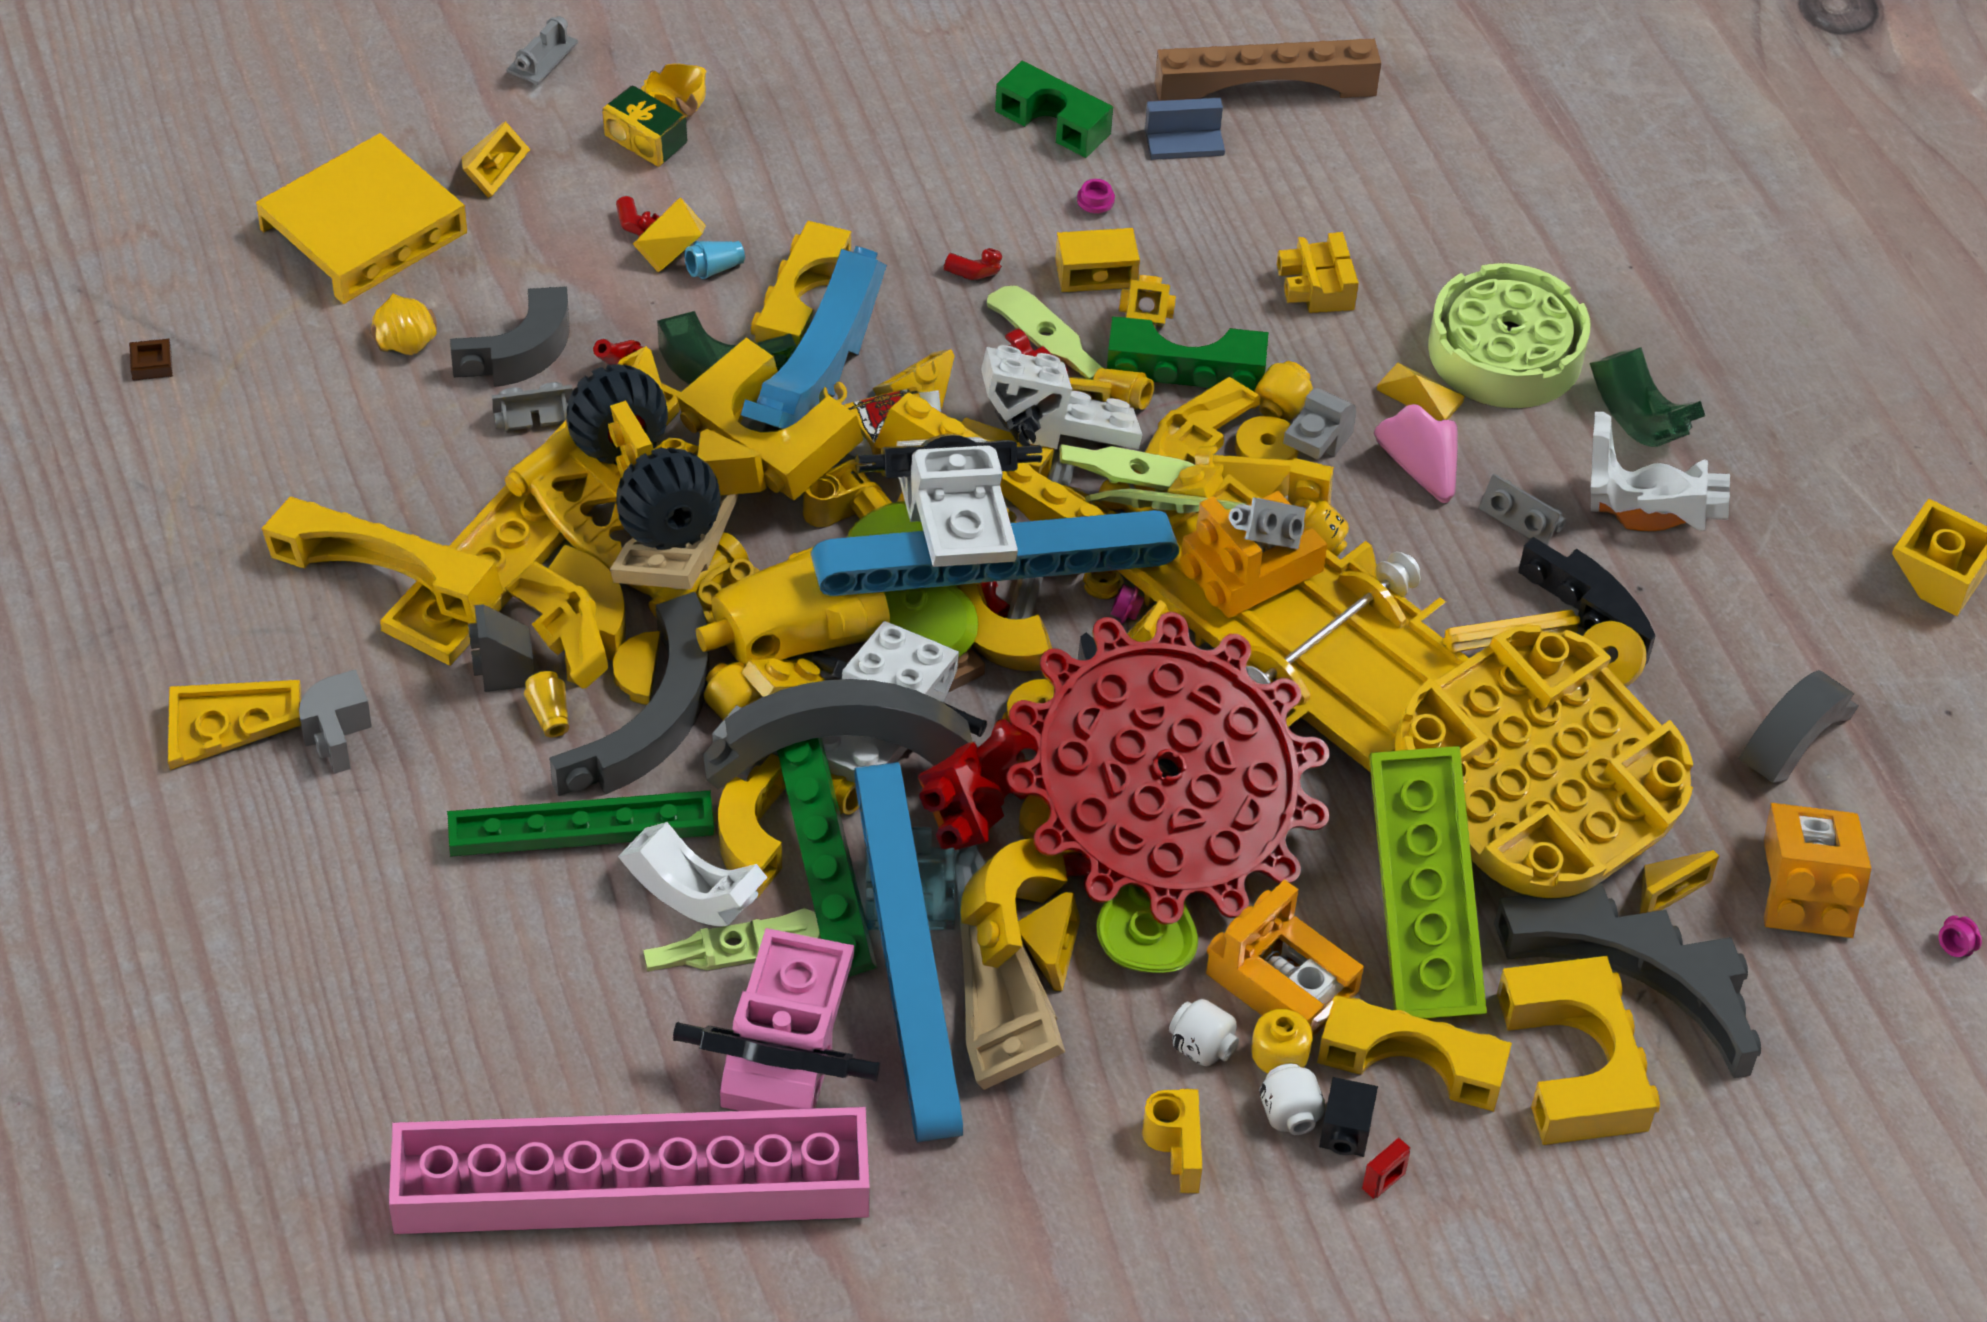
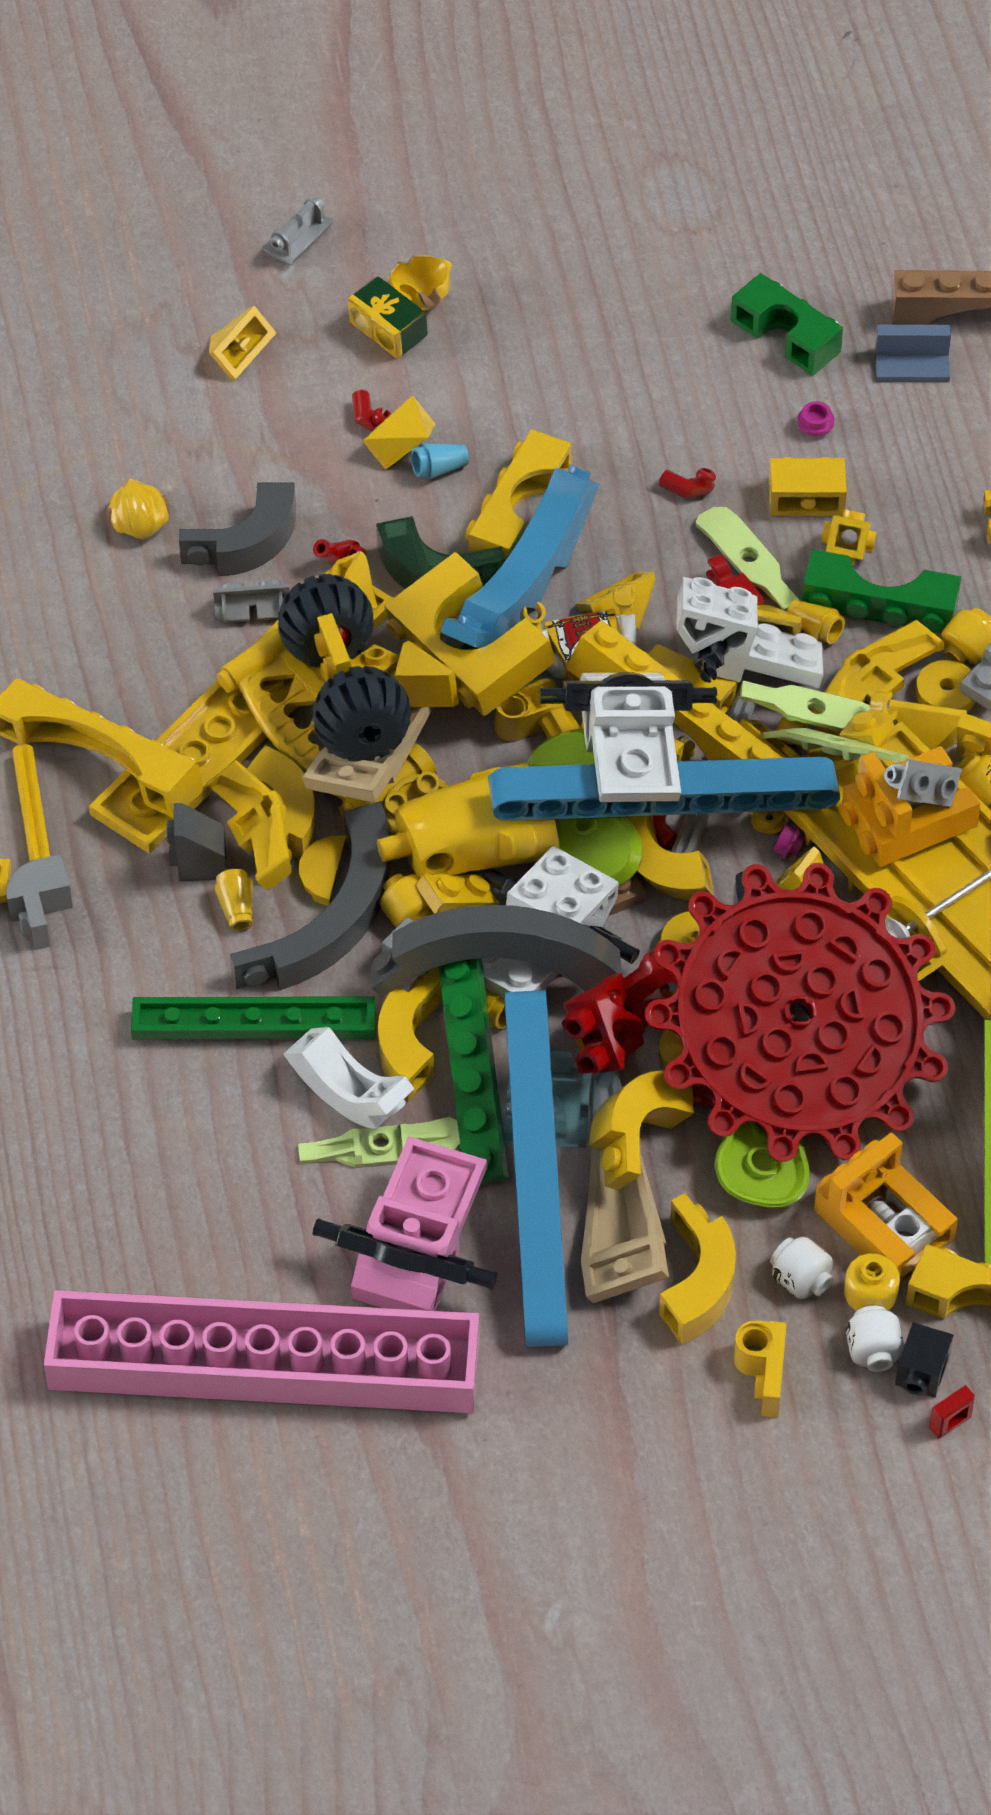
camera: 10 degrees right, 5 degrees up
(316, 621) = (30, 802): none -> yellow axle
(364, 215) = (112, 394): yellow panel -> none
(1051, 936) = (673, 1161): yellow slope -> none
(1100, 1074) = (703, 1296): none -> yellow arch

